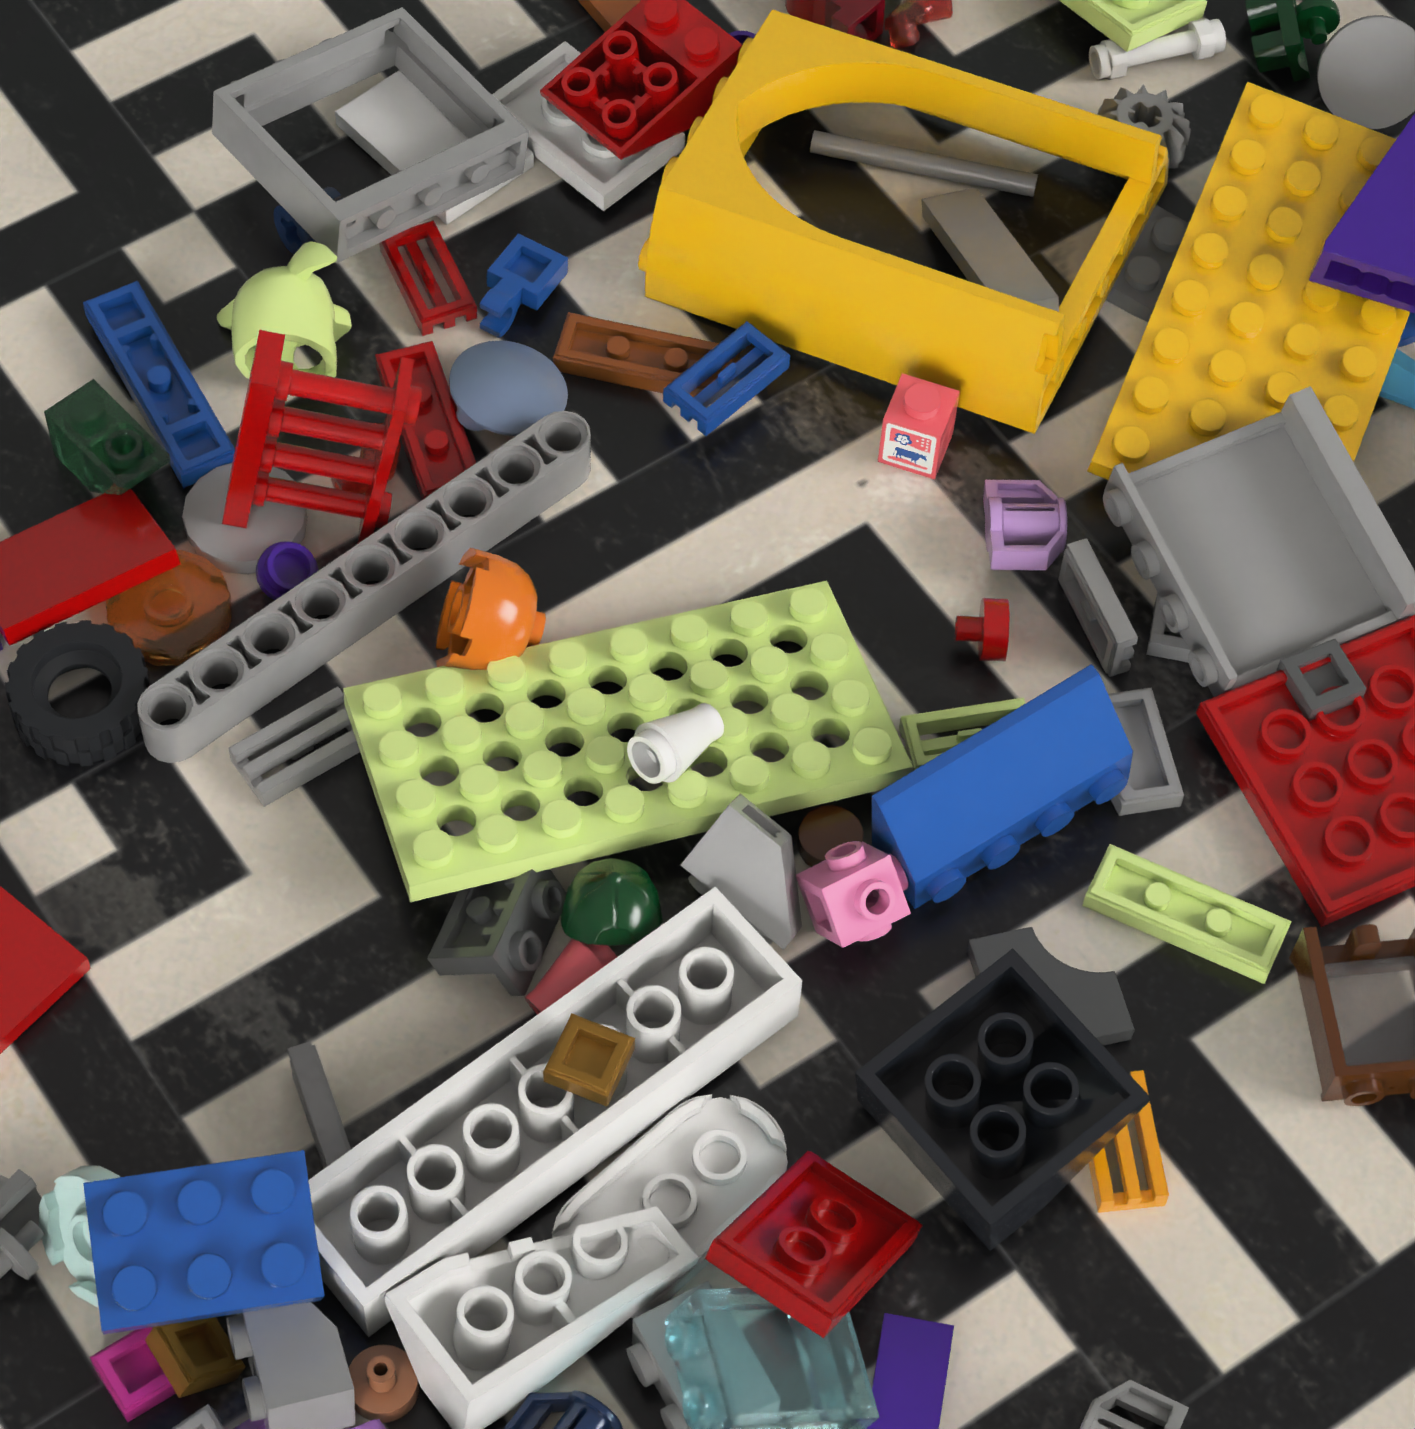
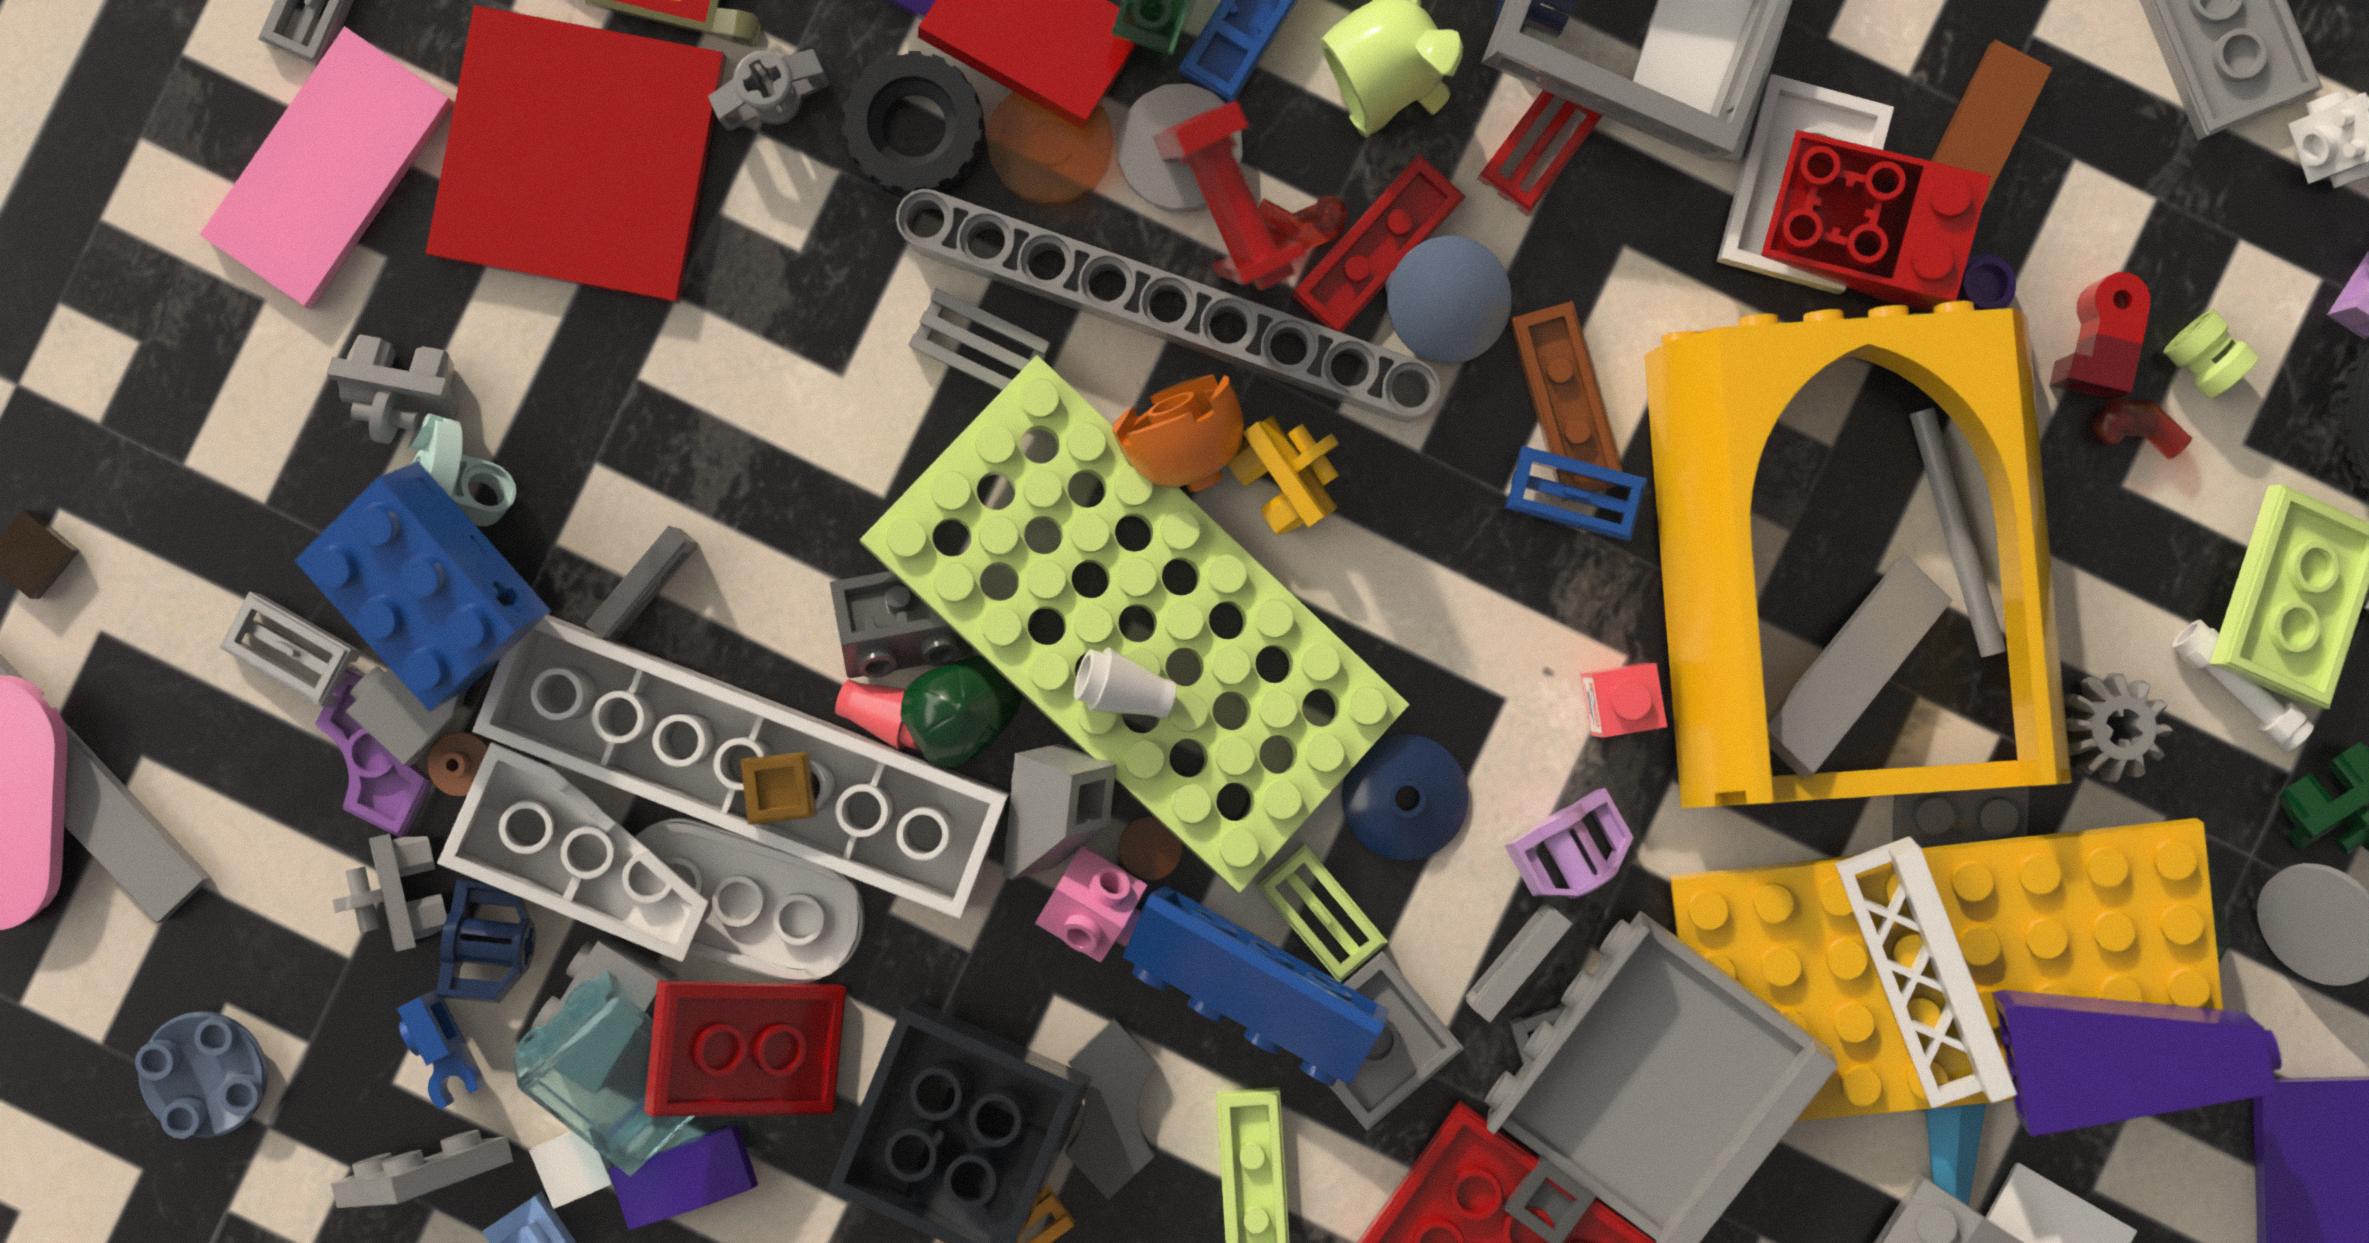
camera: 60 degrees right, 30 degrees up
(284, 567) = (1139, 224): dark purple plate -> none
(520, 275) = (1588, 236): blue plate -> none
(599, 565) = (1271, 450): none -> yellow hips
(905, 653) = (1371, 792): none -> dark blue dish
(988, 629) = (1437, 877): red tile -> none
(1274, 286) = (1949, 968): none -> white fence

